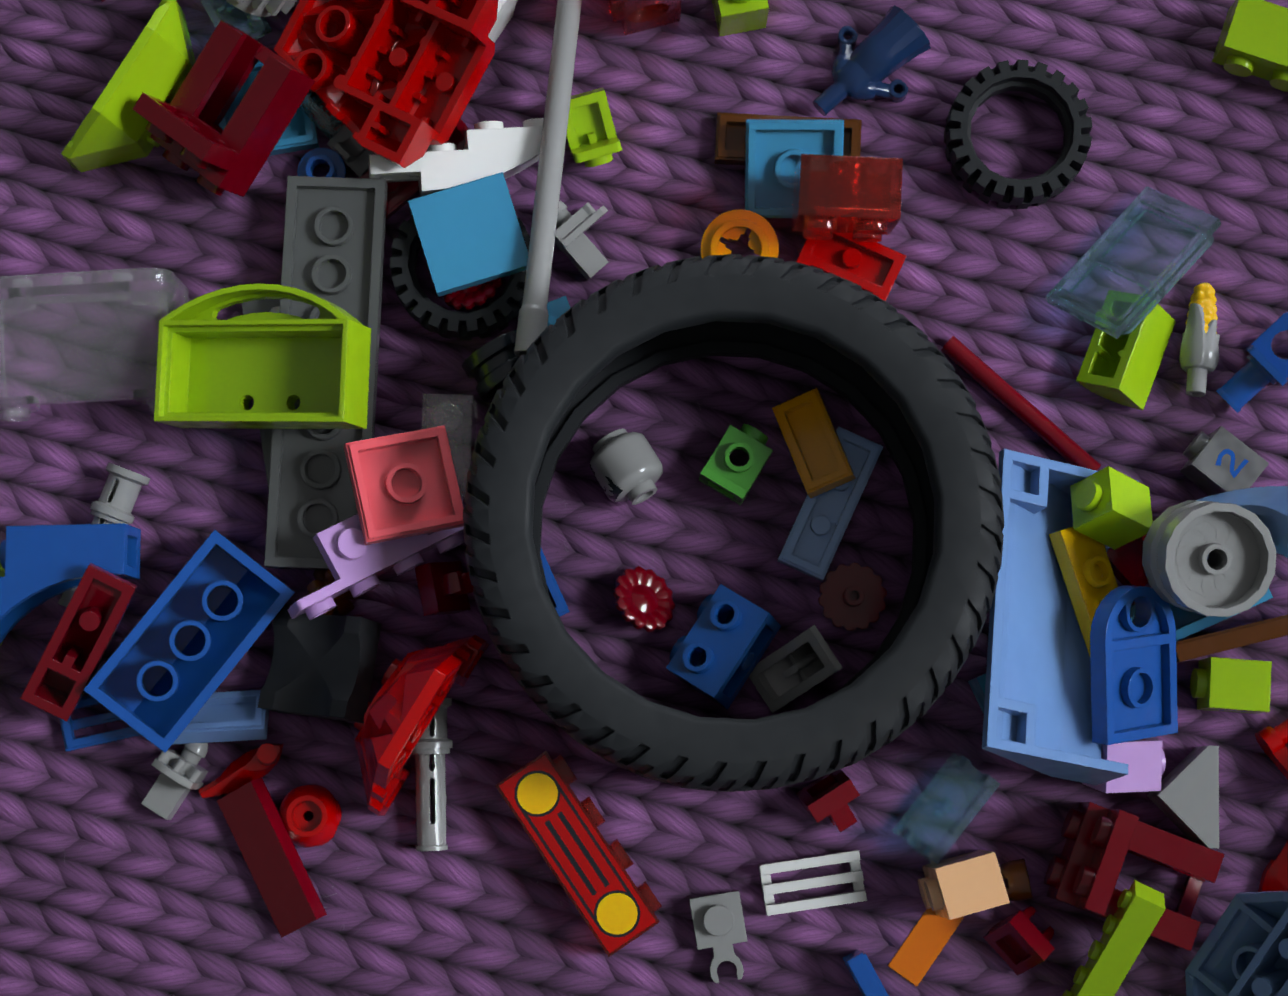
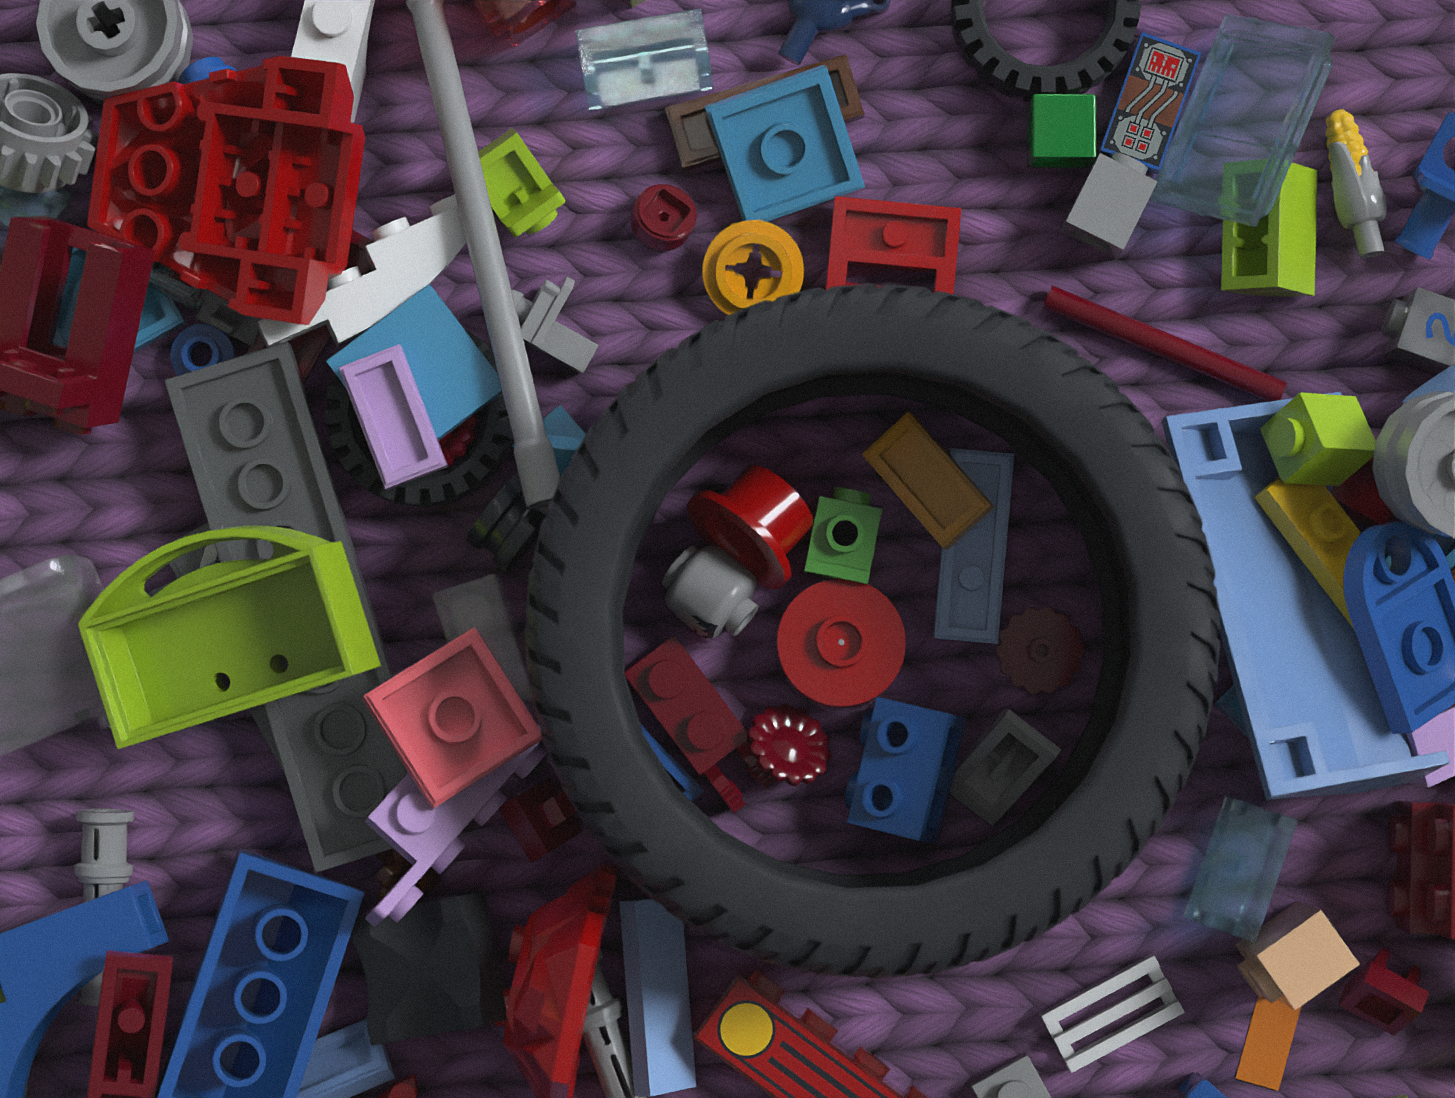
camera: 15 degrees left, 5 degrees up
(441, 256) = (393, 417): none -> lavender tile
(481, 748) = (657, 998): none -> light blue tile
(582, 554) = (694, 716): none -> dark red hinge
(675, 426) = (754, 522): none -> red piece
(688, 189) = (663, 217): none -> dark red tile
(707, 539) = (840, 645): none -> red piece
(714, 72) = (644, 59): none -> clear light blue hinge
(830, 798) = (1107, 914): dark red tile -> none
(847, 196) = (866, 166): clear red brick -> none
(998, 227) = (1061, 131): none -> green piece
(1015, 290) = (1109, 203): none -> light grey brick
(1018, 880) = (1357, 923): reddish brown hinge -> none
(1069, 230) = (1150, 101): none -> tile

